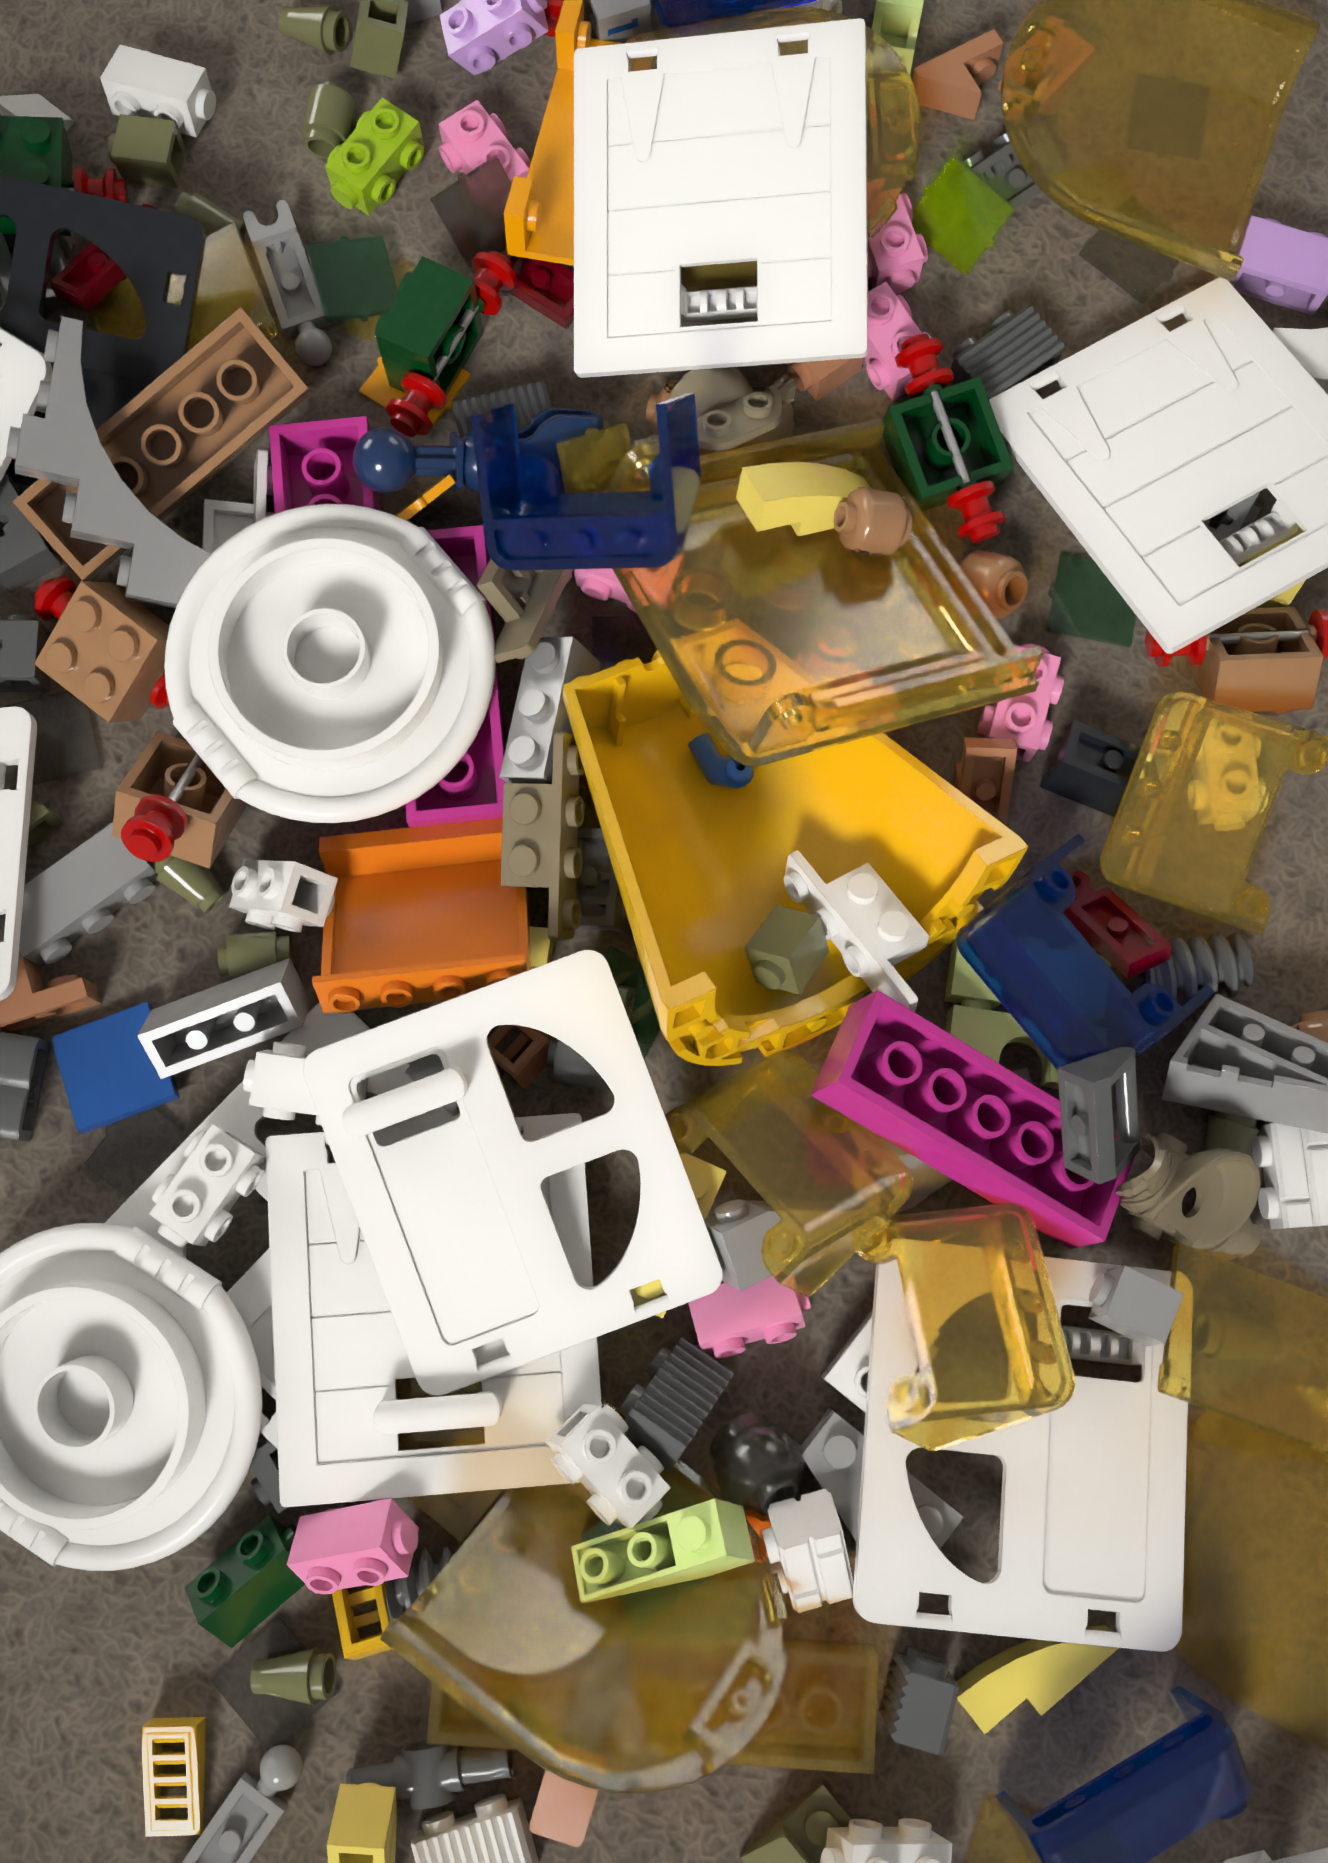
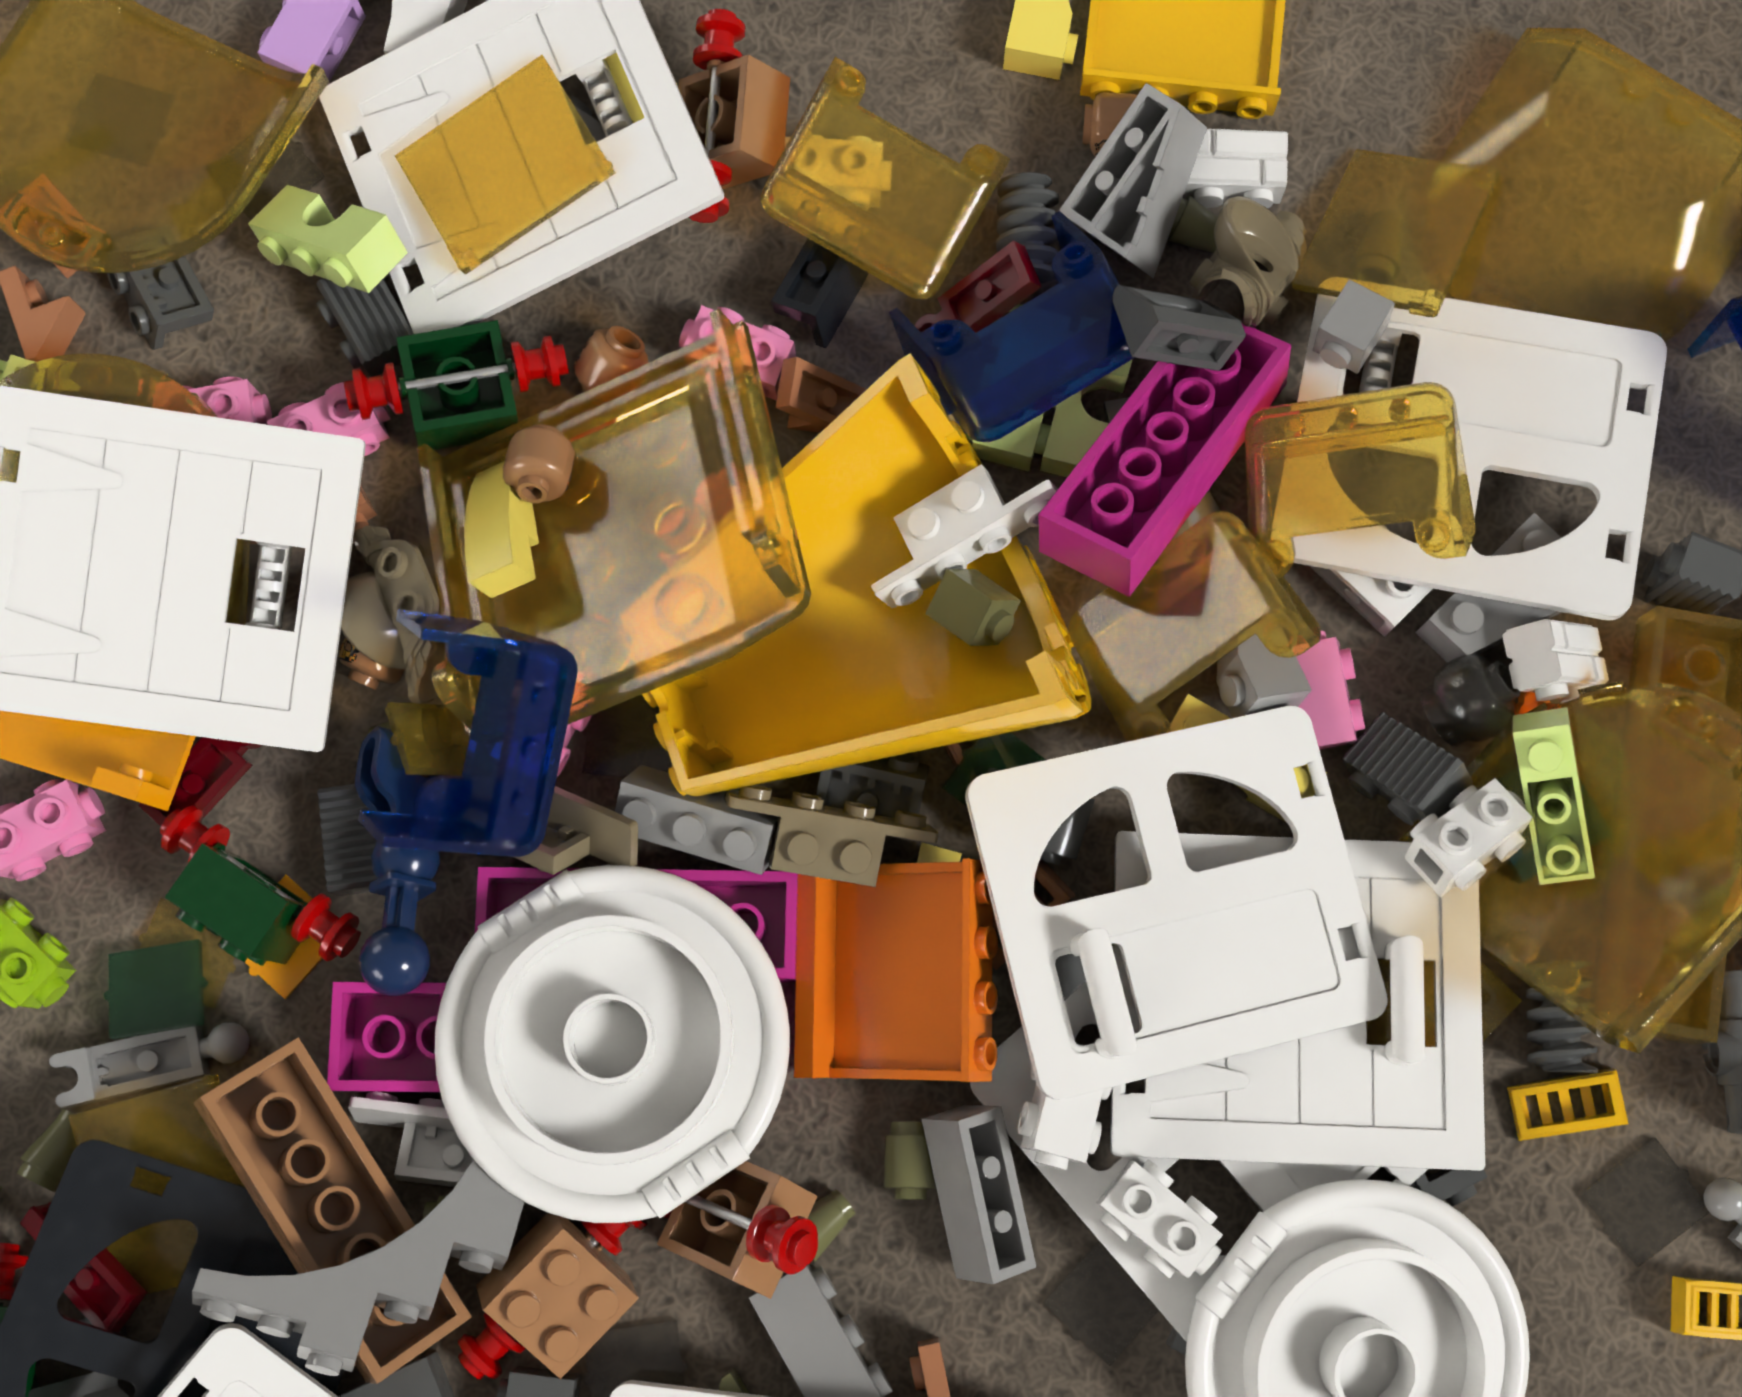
camera: 80 degrees left, 0 degrees up
(109, 1070) = (1012, 1327): blue tile -> none
(245, 1582) = (1547, 1212): dark green brick -> none
(282, 894) = (850, 1123): white brick -> none
(297, 1676) = (1642, 1175): olive cone -> none
(353, 1546) = (1527, 1099): bright pink brick -> none
(425, 498) = (438, 935): light orange piece -> none
(475, 210) = (108, 838): clear smoke piece -> none
(719, 768) = (768, 658): blue arm -> none
(960, 215) = (200, 338): clear neon green piece -> none
(1032, 1670) = (1675, 478): light yellow slope -> none
(1066, 313) = (303, 234): none -> yellowish green arch
(1088, 604) = (640, 276): clear green piece -> none
(1171, 449) = (504, 164): none -> clear yellow piece

